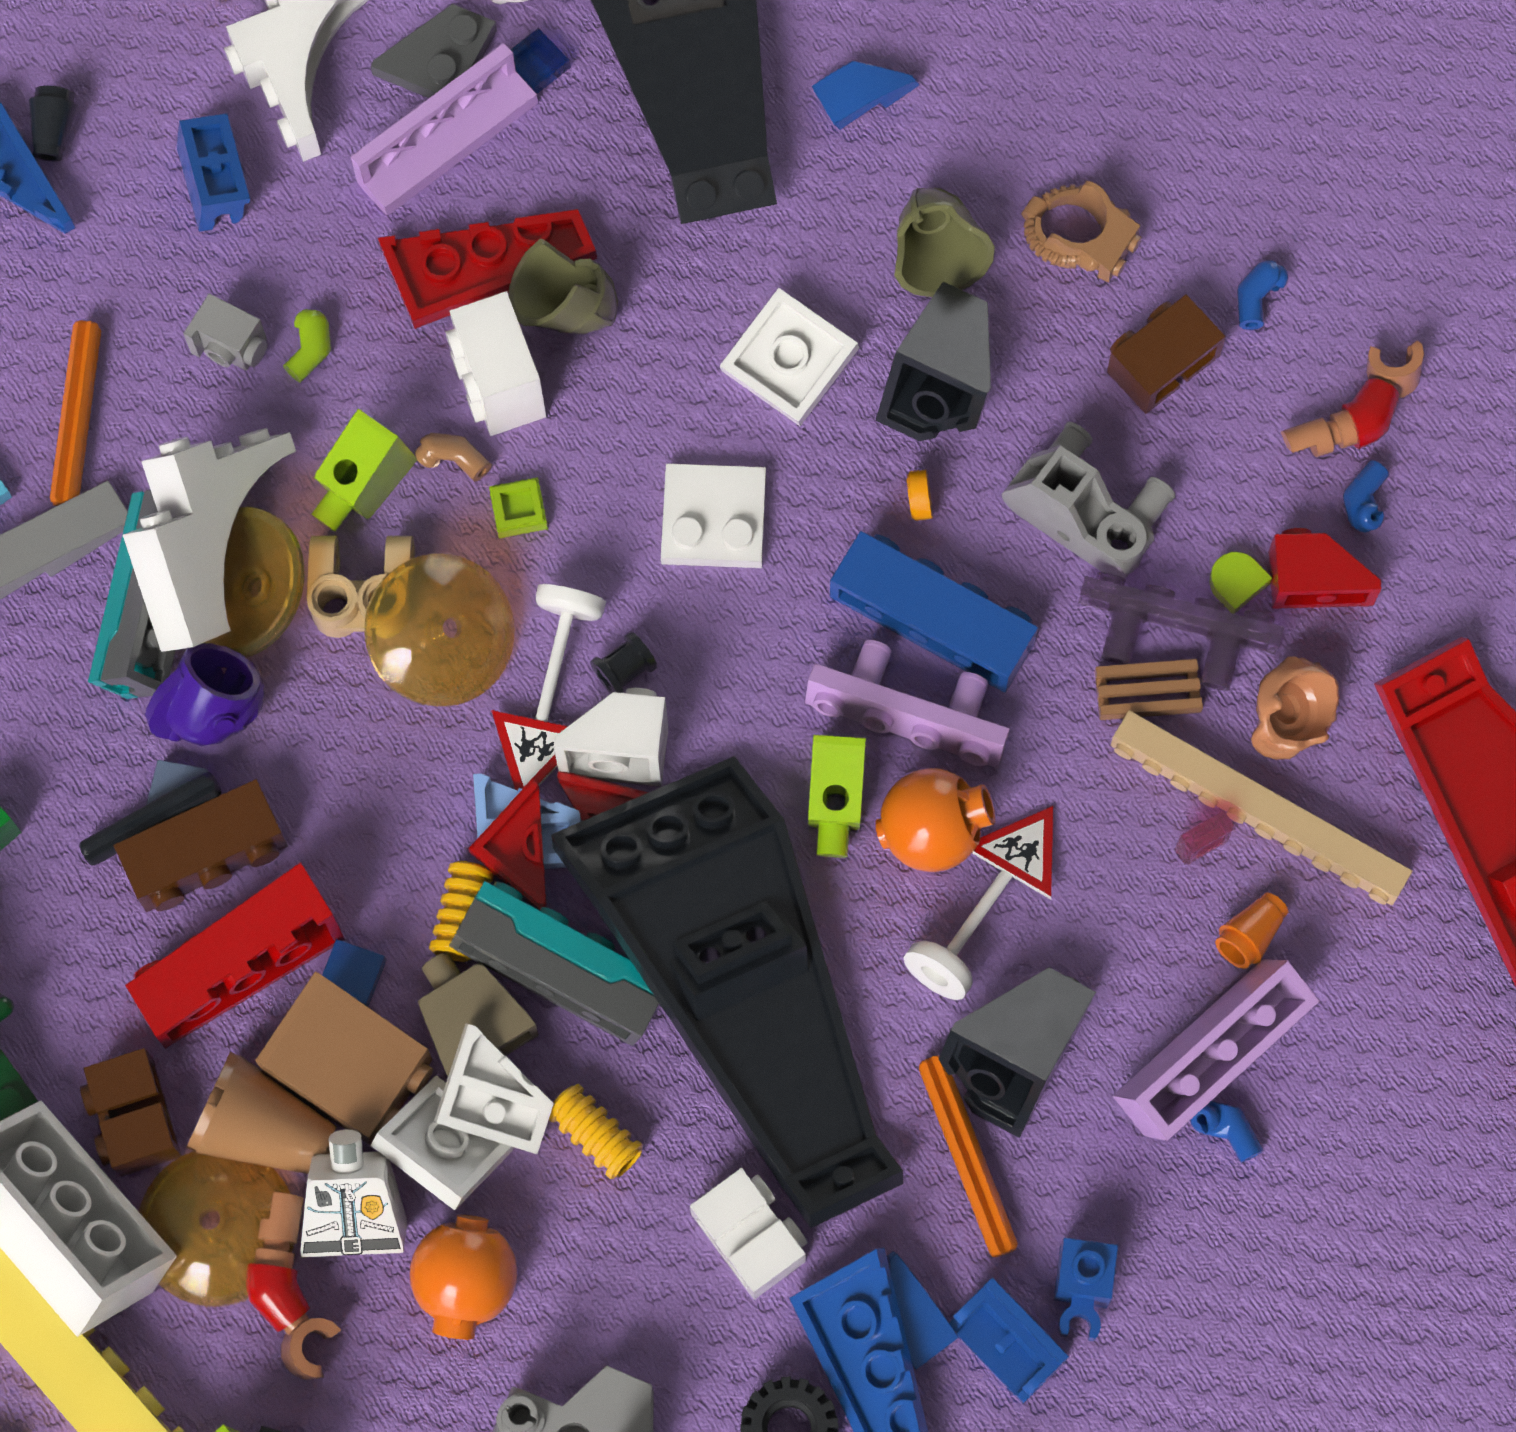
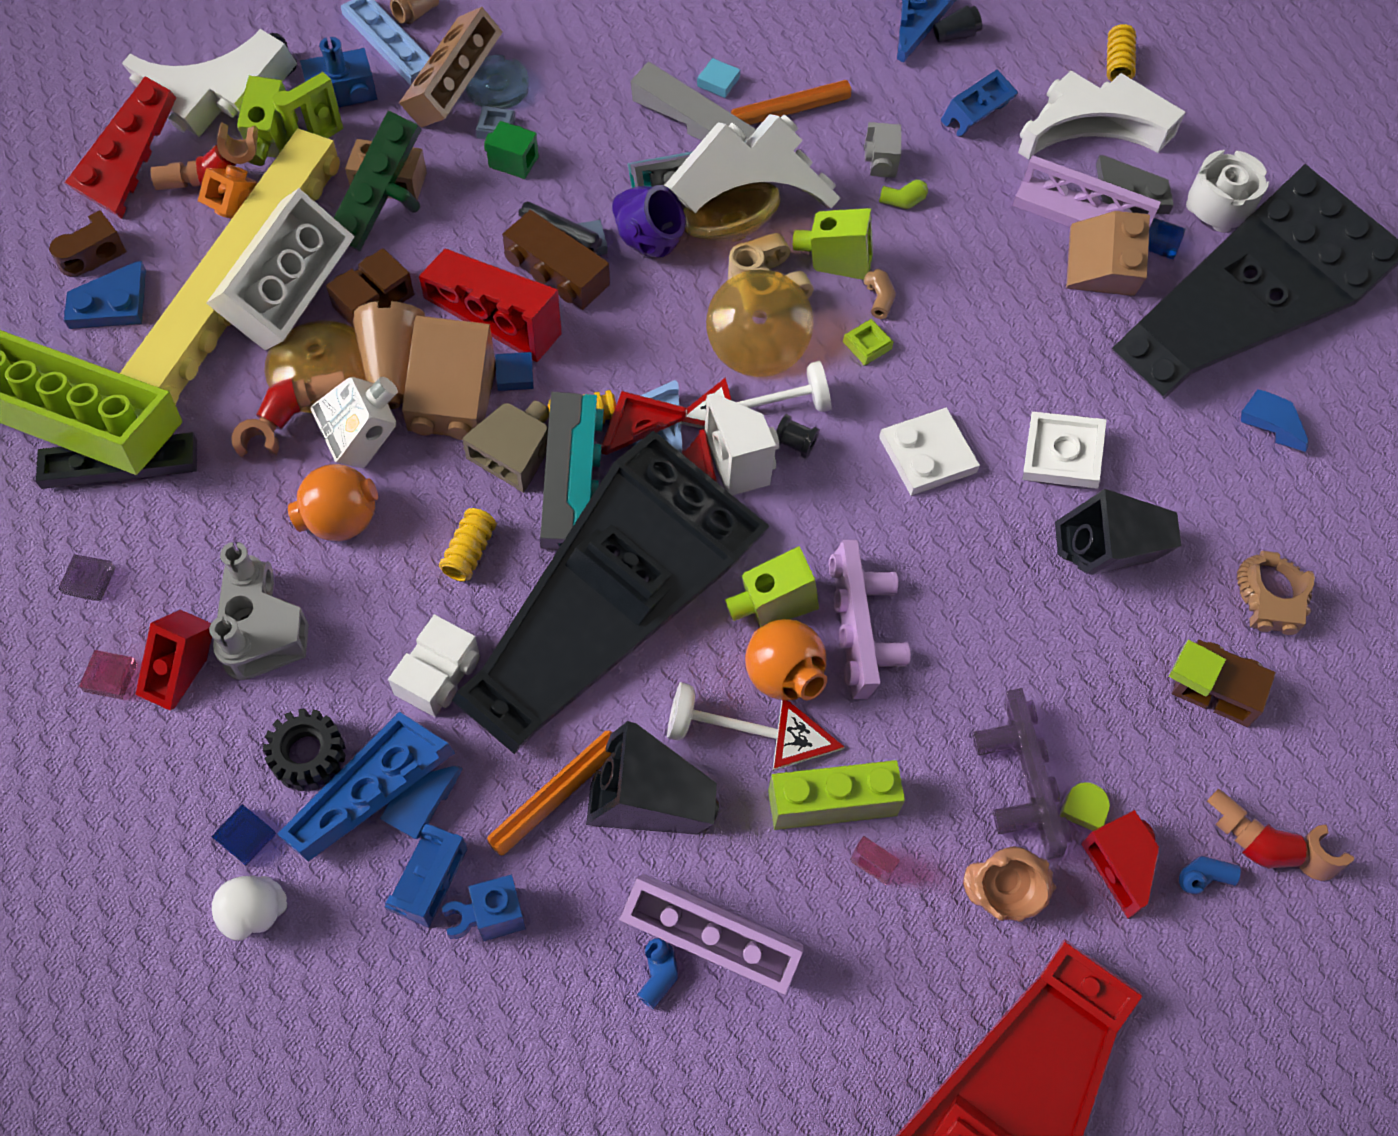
camera: 60 degrees right, 10 degrees down
(436, 1155) = (419, 457): white plate -> none
(468, 265) = (1009, 255): red wing -> none
(492, 1096) = (460, 467): white wing -> none
(495, 364) = (950, 281): white brick -> none
(539, 146) = (1109, 253): none -> medium nougat slope
(561, 293) = (1021, 302): olive helmet -> none
(919, 495) = (1018, 564): light orange tile -> none
(933, 610) = (941, 607): blue brick -> none
(939, 244) = (1202, 500): olive helmet -> none
(1075, 509) = (1068, 664): light grey piece -> none
(1114, 843) = (835, 795): none -> lime brick
(1144, 671) = (979, 768): medium nougat tile -> none
(1148, 375) = (1197, 668): none -> lime tile
(1250, 932) = (820, 926): orange cone -> none
(1254, 287) = (1307, 726): blue arm -> none
(1261, 808) = (919, 903): tan piece -> none

